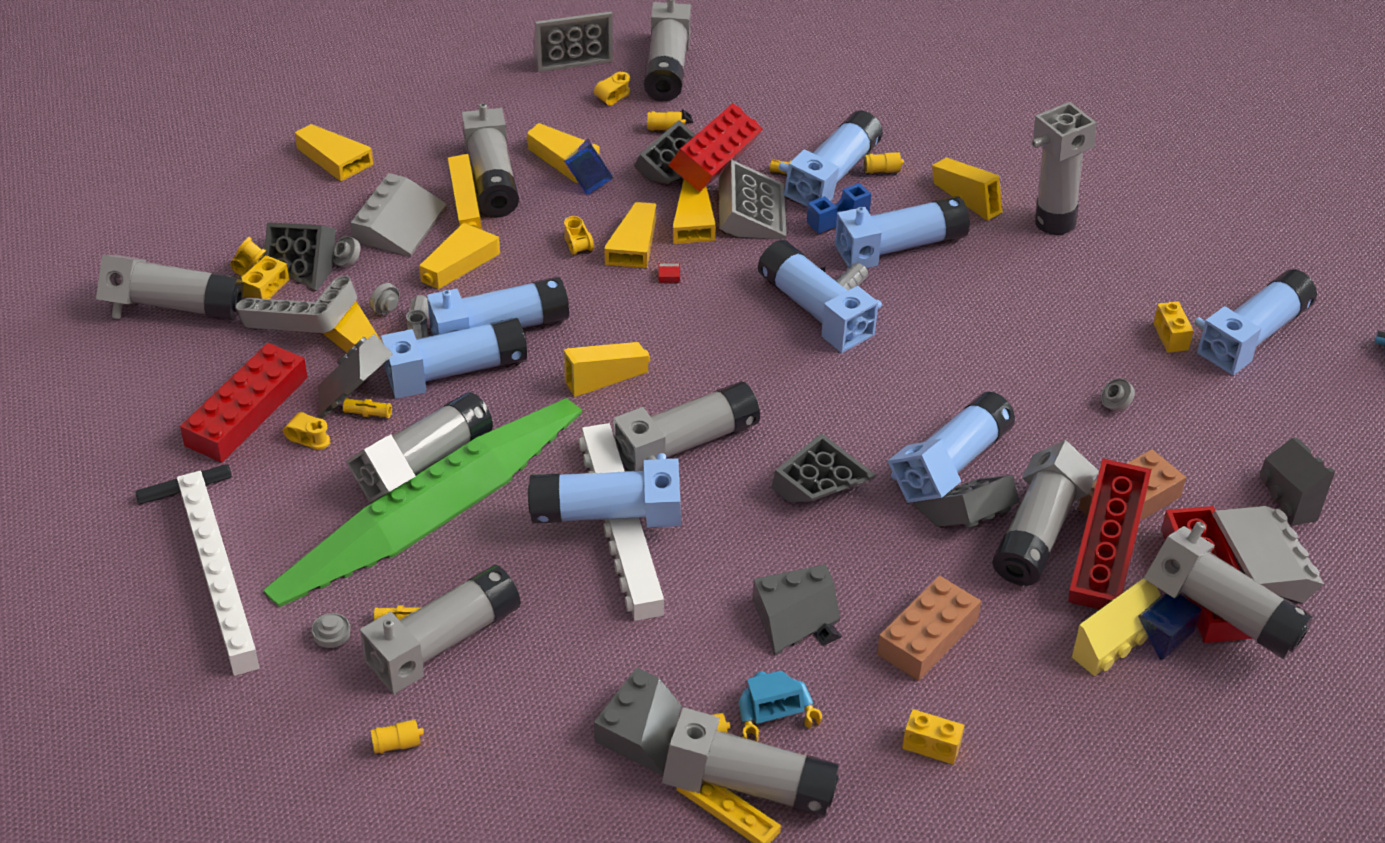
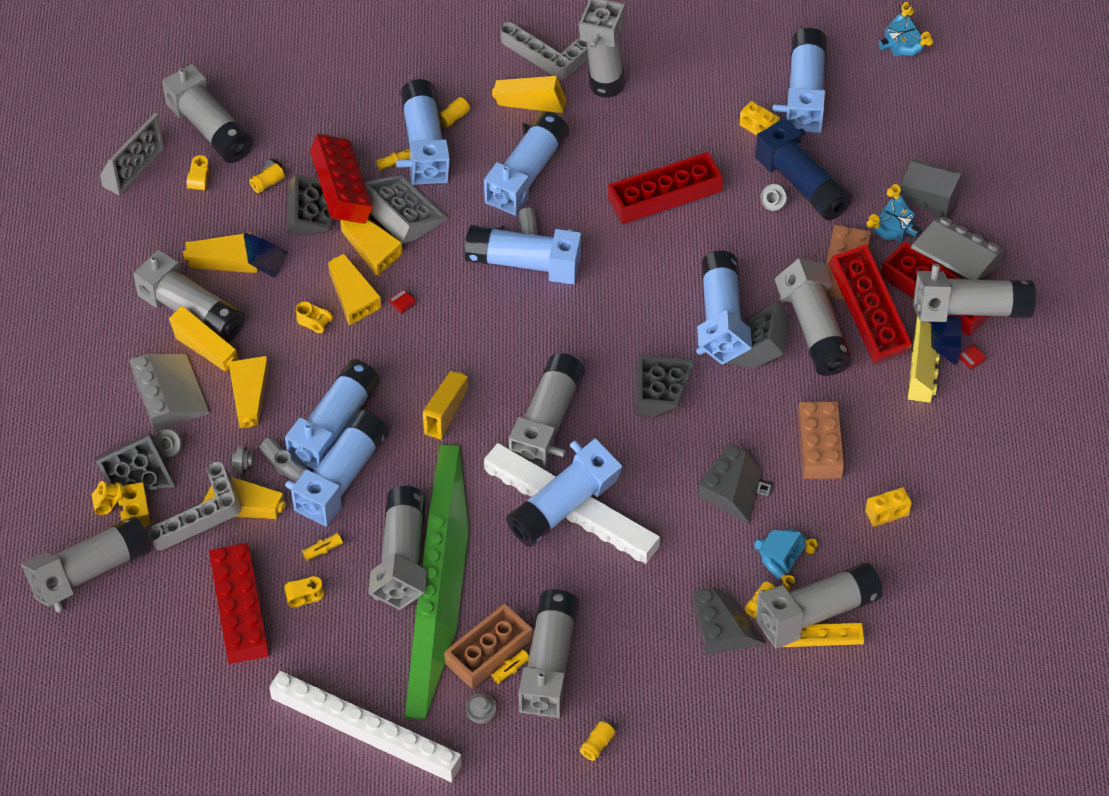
camera: 40 degrees left, 10 degrees up
(172, 487) = (264, 690): black axle -> none
(333, 152) = (55, 369): yellow slope -> none
(352, 371) = (298, 530): dark grey wedge -> none
(395, 579) = (488, 646): none -> nougat brick
(823, 213) = (464, 178): blue arch -> none
(1012, 324) = (665, 188): none -> red brick
(1020, 177) = (541, 54): none -> light grey beam
(1167, 366) = (781, 150): none -> dark blue piece
(1186, 663) = (972, 357): none -> red tile
(1227, 487) = (895, 219): none -> dark azure torso

